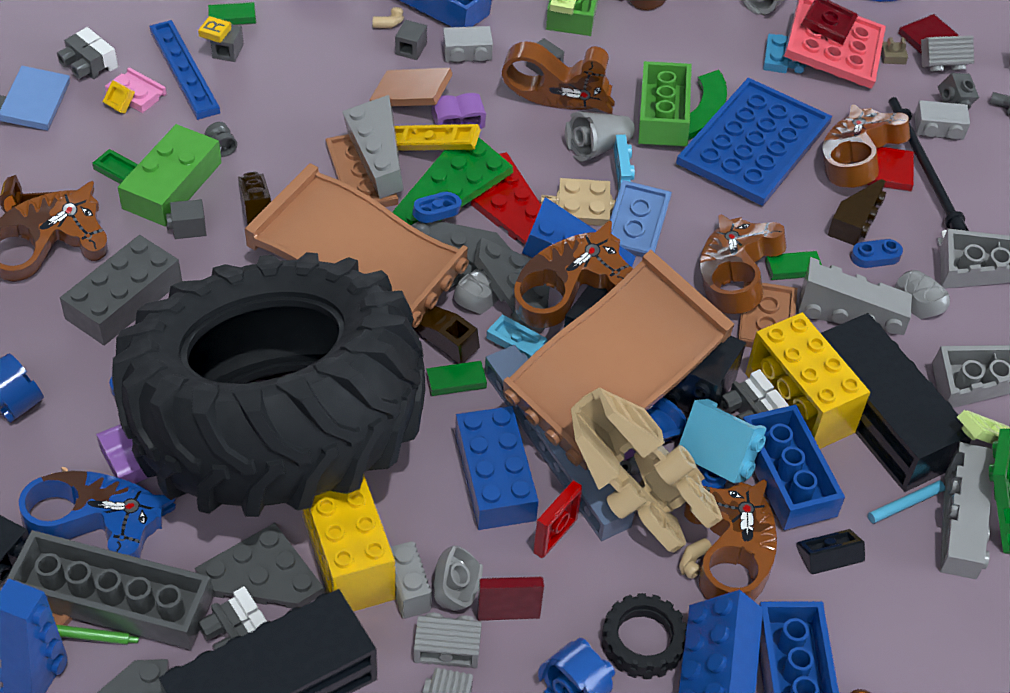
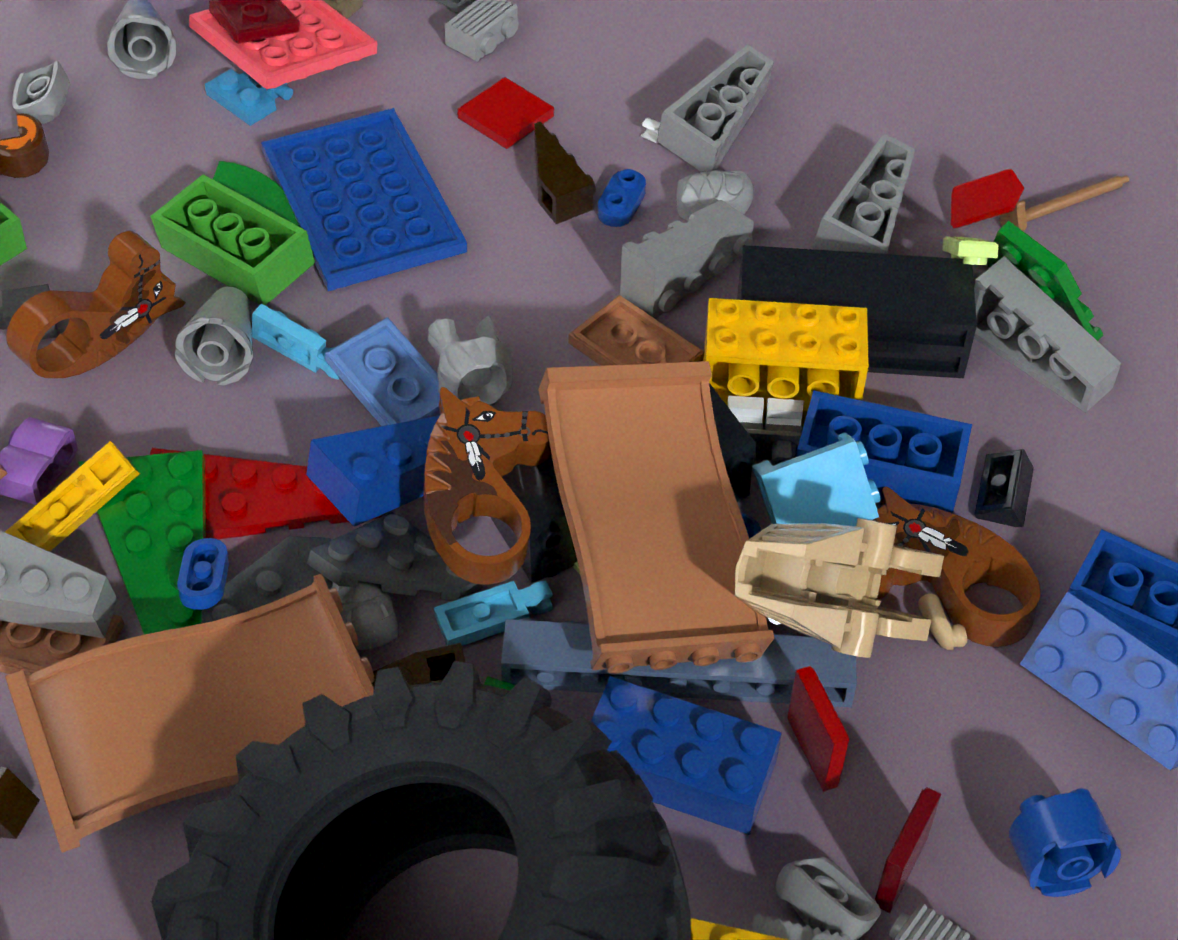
camera: 55 degrees left, 0 degrees up
(585, 199) = (307, 411): tan plate -> none
(636, 663) = (1040, 704): black tyre -> none
(666, 232) = (474, 365): none -> light grey piece
(732, 257) = (532, 322): dark orange animal -> none
(789, 265) = (580, 278): green tile -> none
(856, 141) = (451, 110): dark orange animal -> none
(906, 501) = (981, 384): medium azure bar -> none
(954, 218) = (631, 105): black bar -> none

